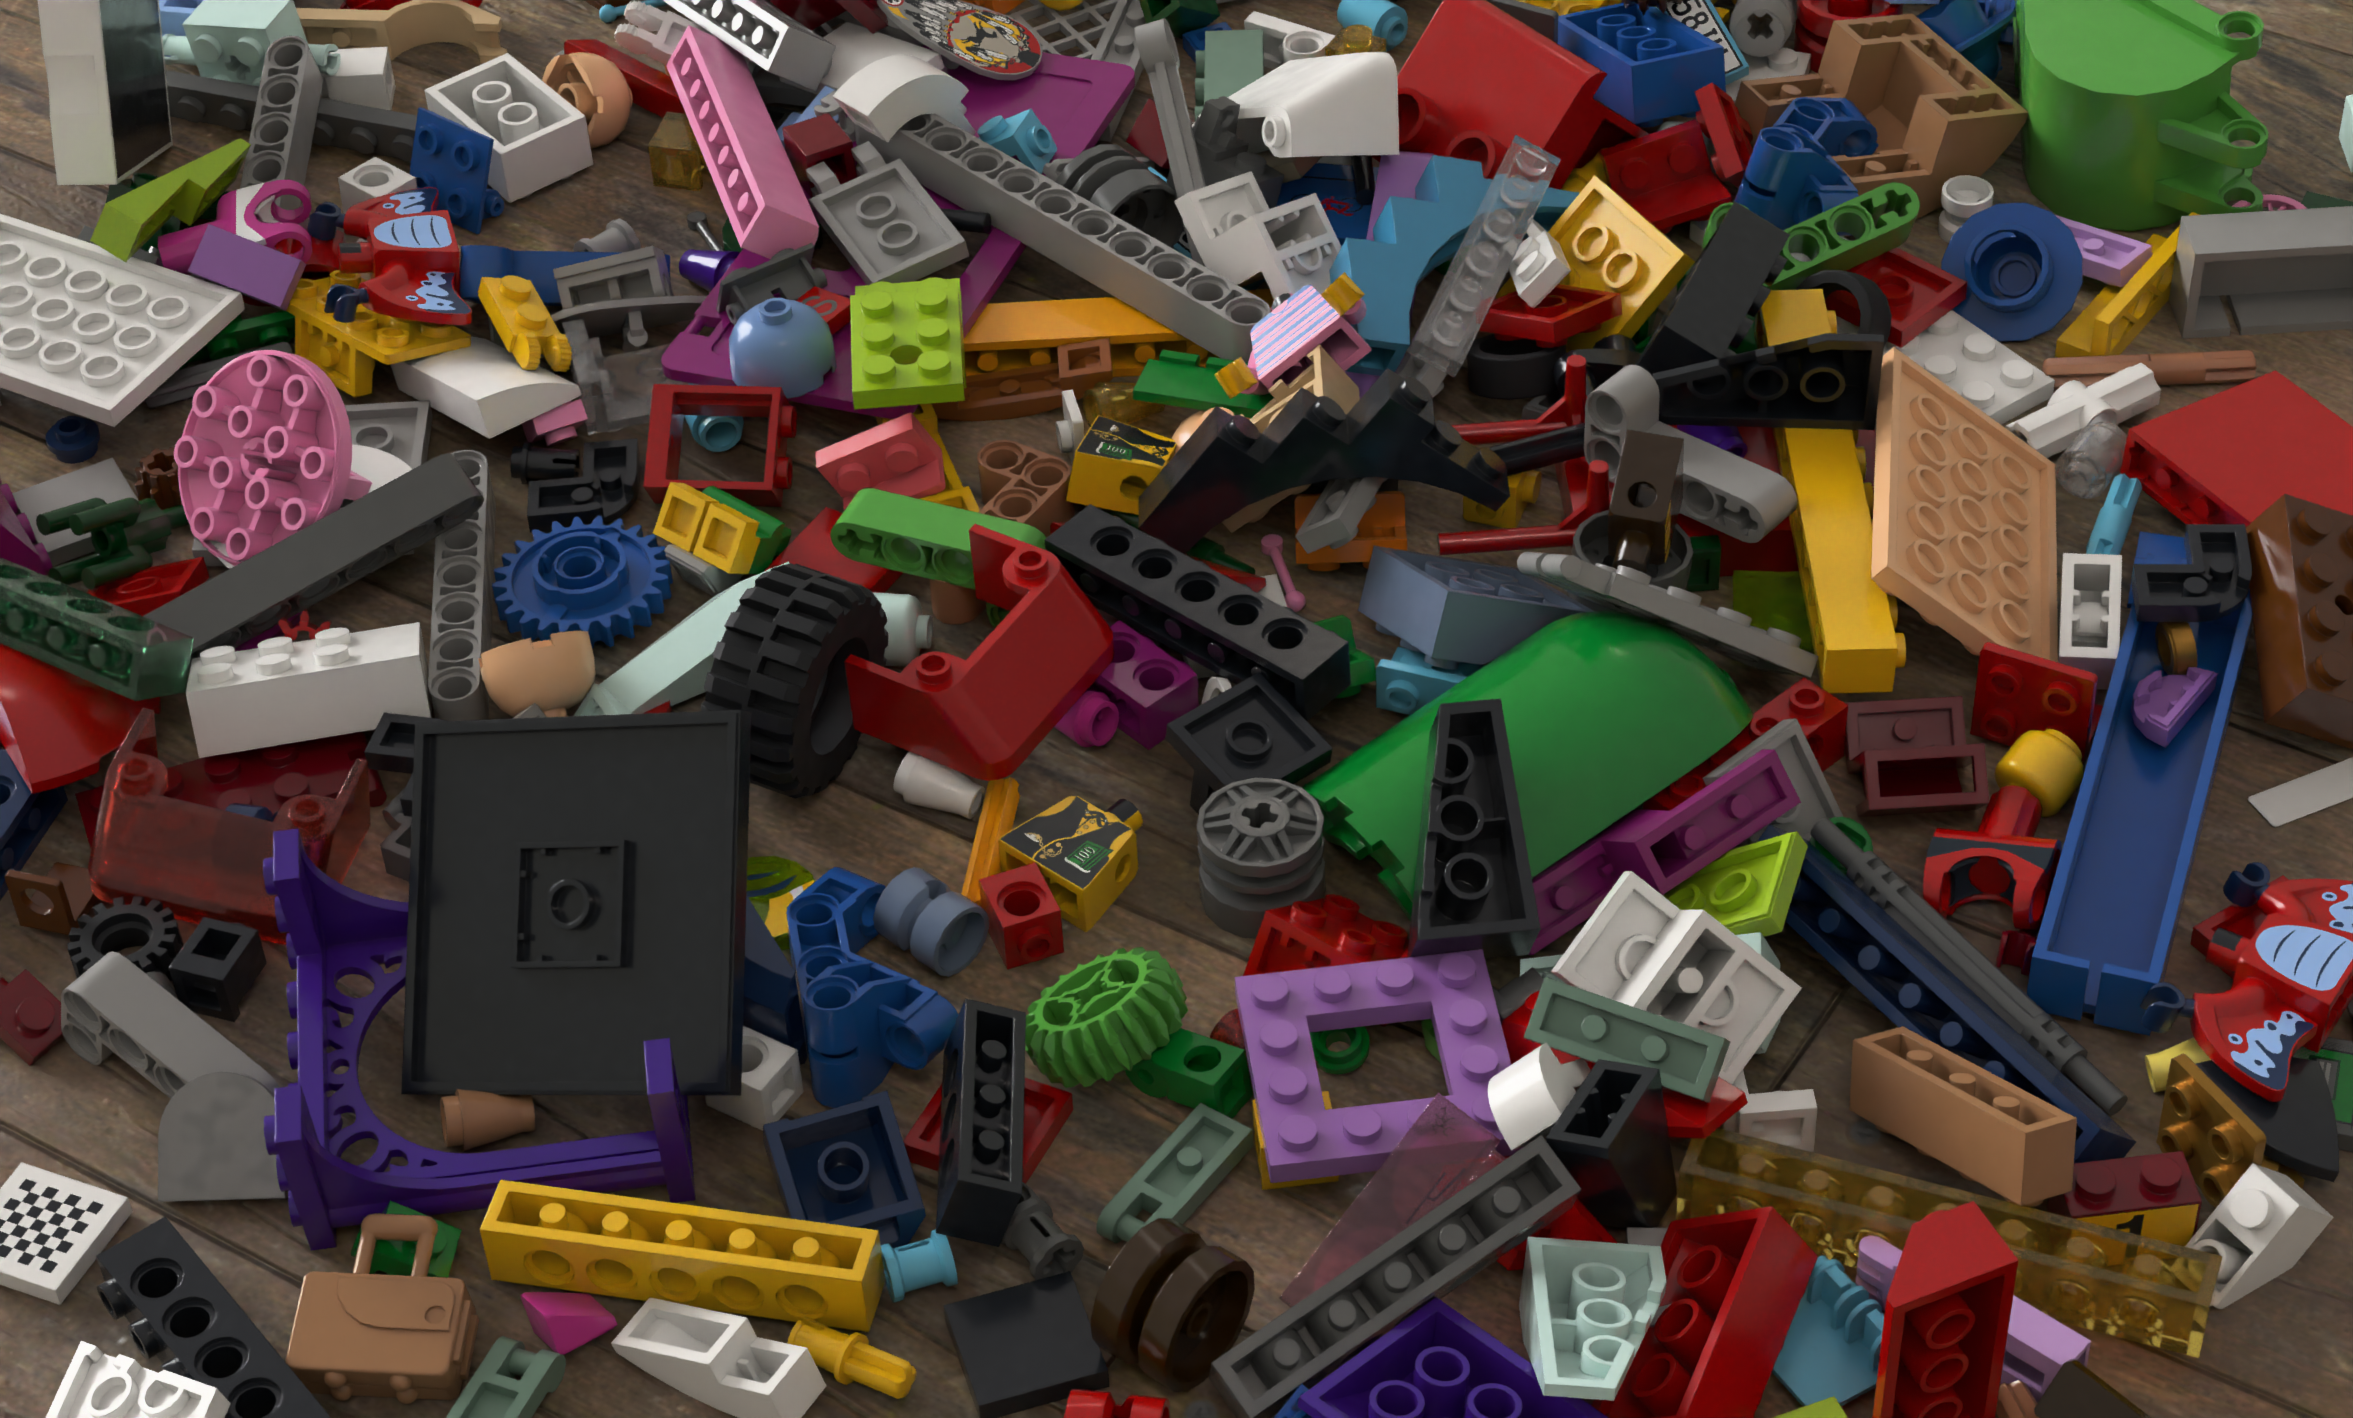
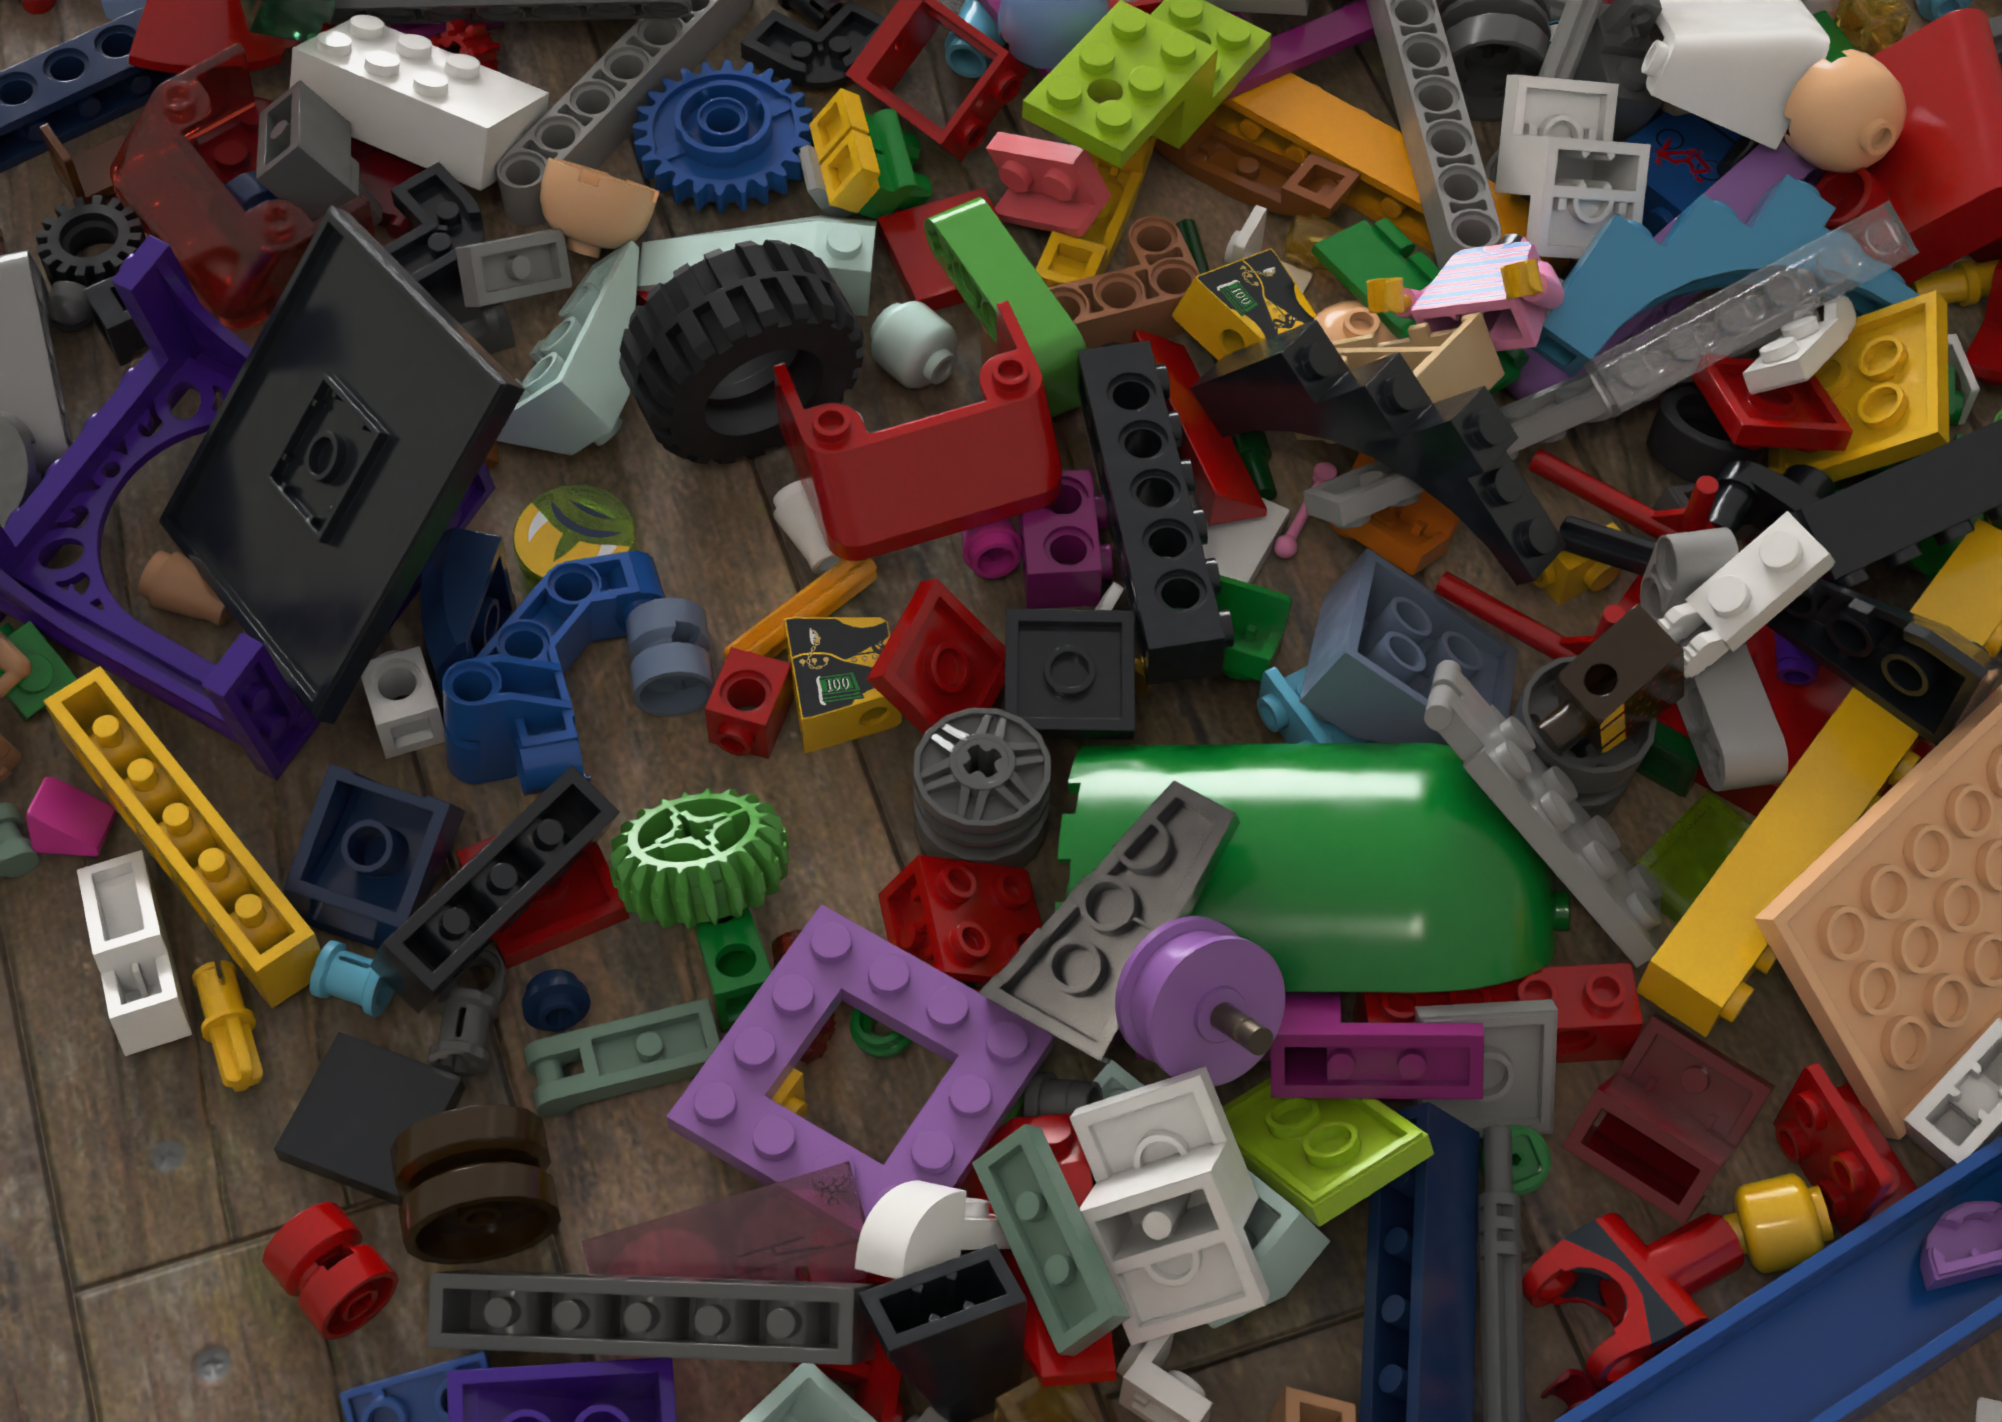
camera: 35 degrees right, 15 degrees up
(271, 758) = (308, 154): none -> dark grey hinge
(1086, 1180) = (555, 1001): none -> dark blue plate
(1144, 801) = (938, 659): none -> red tile
(1434, 100) = (1845, 113): none -> light nougat cylinder
(1578, 838) = (1200, 999): none -> medium lavender wheel
(1682, 383) = (1747, 592): none -> white hinge

